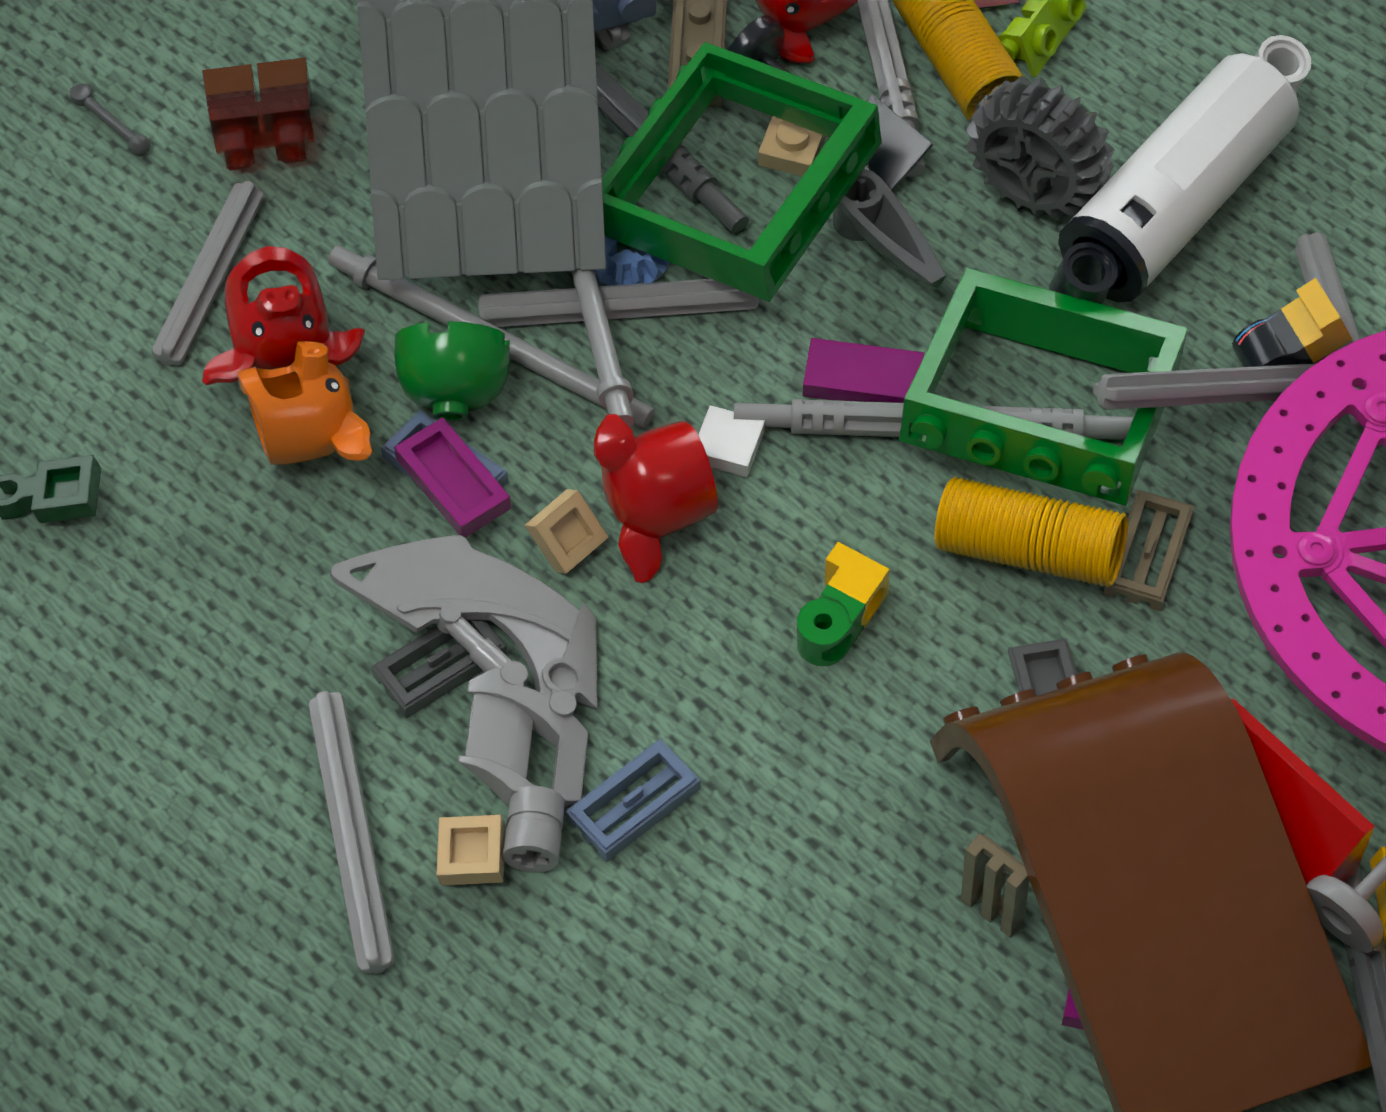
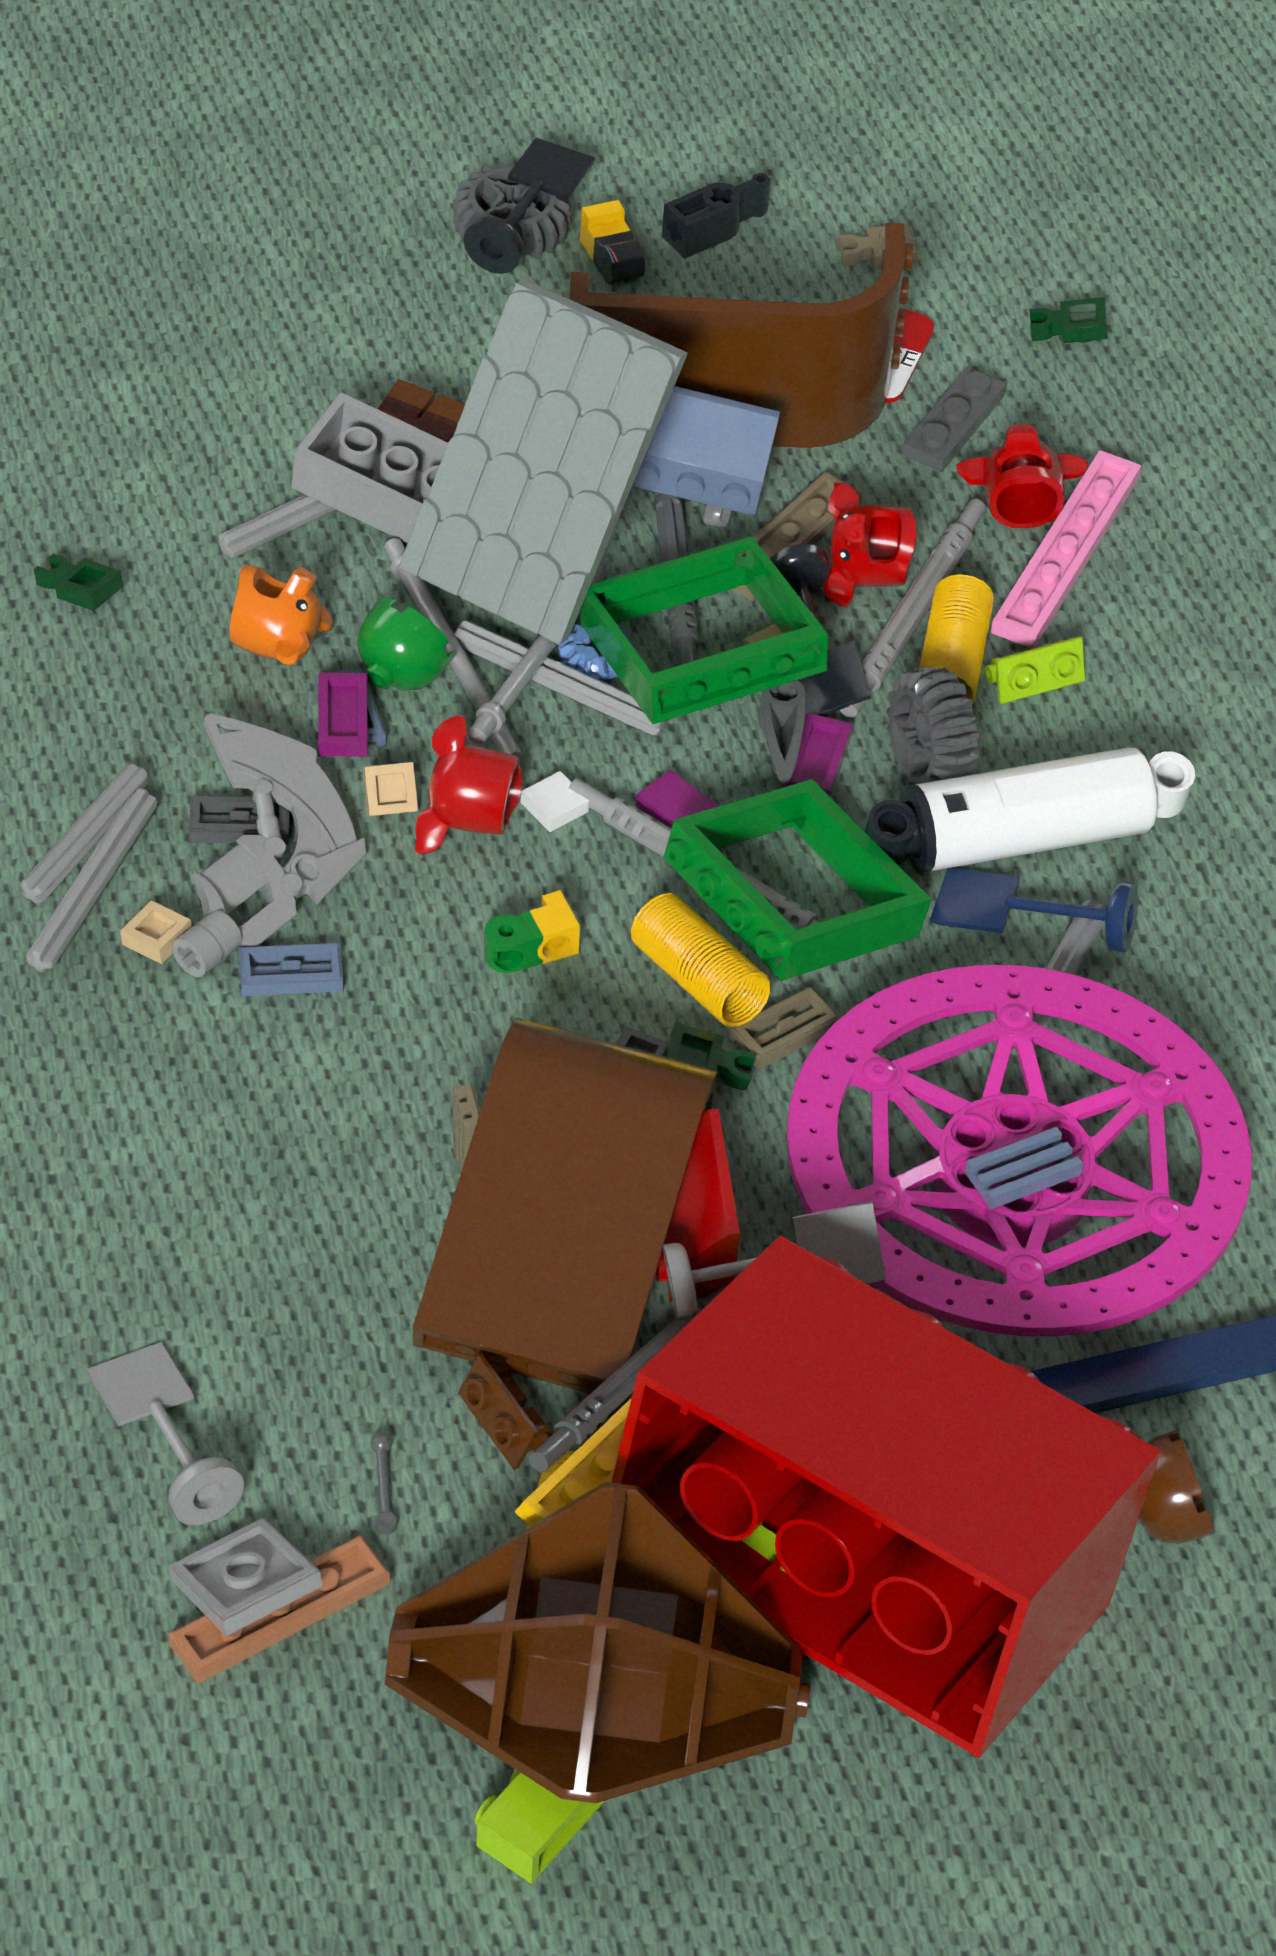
camera: 30 degrees right, 10 degrees down
(82, 96) = (315, 361): dark grey hinge -> none
(272, 325) = (310, 547): red piece -> none
(275, 182) = (368, 465): none -> light grey brick
(297, 782) = (82, 835): none -> light grey axle
(937, 226) = (821, 751): none -> magenta tile
(1108, 636) = (705, 1050): none -> dark green plate
(1195, 386) = (881, 923): light grey axle -> none
(1209, 297) = (985, 900): none -> dark blue piece
(1294, 334) = (1025, 945): leg -> none

